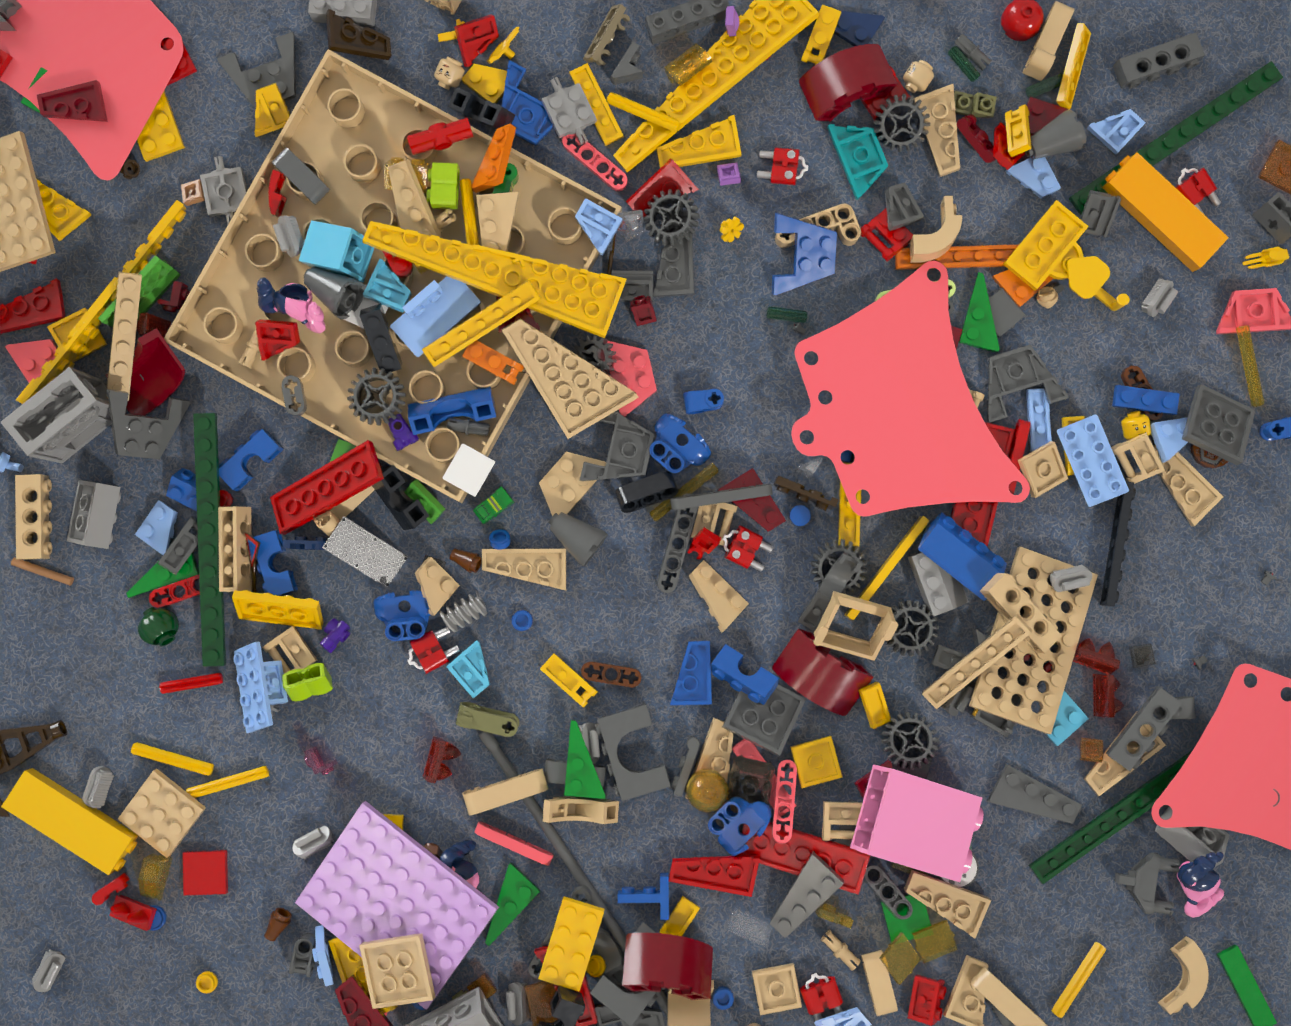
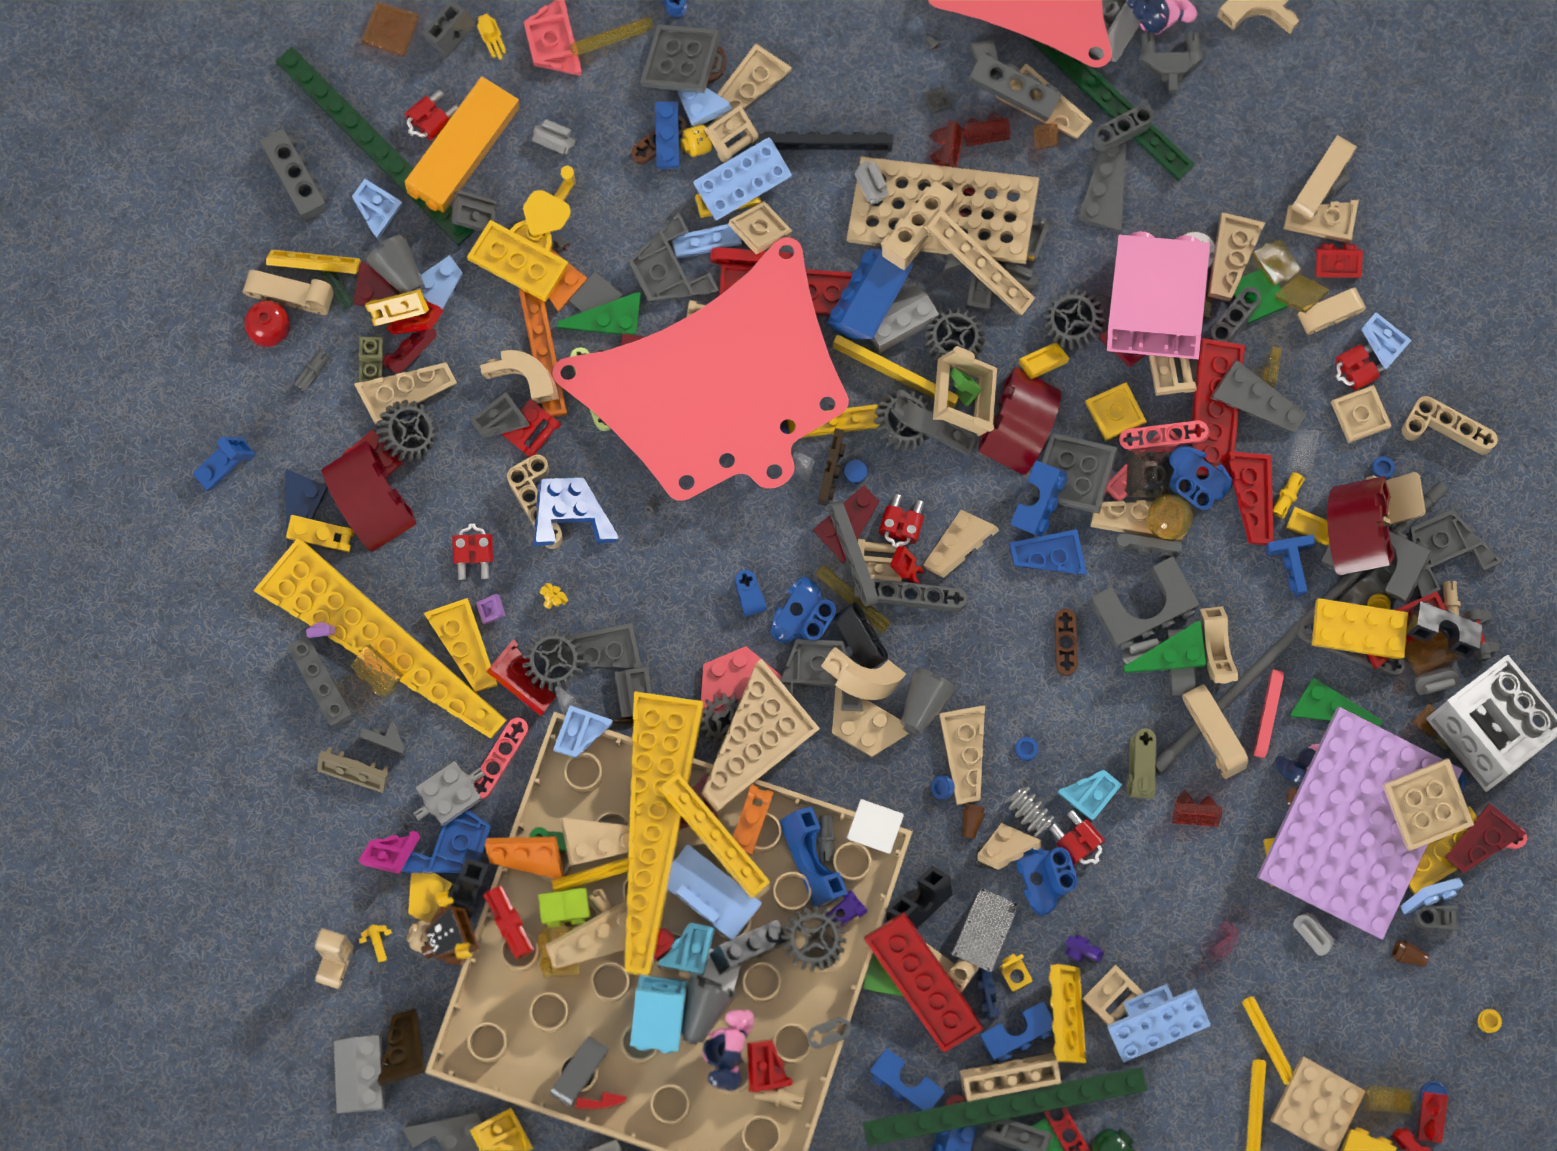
camera: 100 degrees left, 10 degrees down
(191, 683) = (1168, 1102): red axle -> none
(205, 872) = (1372, 1046): red tile -> none
(253, 547) = (1007, 1052): piece -> none
(289, 235) = (649, 1070): light grey piece -> none
(307, 682) = (1141, 969): lime brick -> none
(334, 569) = (1012, 963): none -> yellow bracket
(428, 501) = (908, 884): bright green plate -> none
(440, 86) = (449, 933): none -> torso
(475, 37) = (378, 915): red wing -> none
(493, 505) = (906, 800): green leg -> none
(503, 48) = (385, 882): yellow piece -> none
(527, 53) = (389, 853): none -> dark pink wing
(568, 679) = (1080, 687): yellow plate -> none
(601, 484) = (861, 681): none -> tan arch
(606, 122) = (457, 750): yellow tile -> none
(643, 112) = (437, 711): yellow axle -> none
(643, 310) = (660, 674): dark red bracket -> none
(711, 904) = (1288, 495): none -> yellow pin
(787, 314) = (637, 521): clear green axle -> none
(840, 950) = (1306, 356): tan pin -> none
(859, 156) = (448, 471): teal wing -> none
(862, 628) = (966, 386): none -> bright green bracket
(918, 76) = (350, 422): tan head -> none
(963, 63) = (326, 377): clear green axle -> none
(1047, 297) = (572, 251): tan plate -> none
(1067, 721) = (1020, 163): medium azure wing -> none
(1078, 979) = (1284, 114): yellow axle -> none
(1095, 830) = (1127, 119): none -> dark grey beam

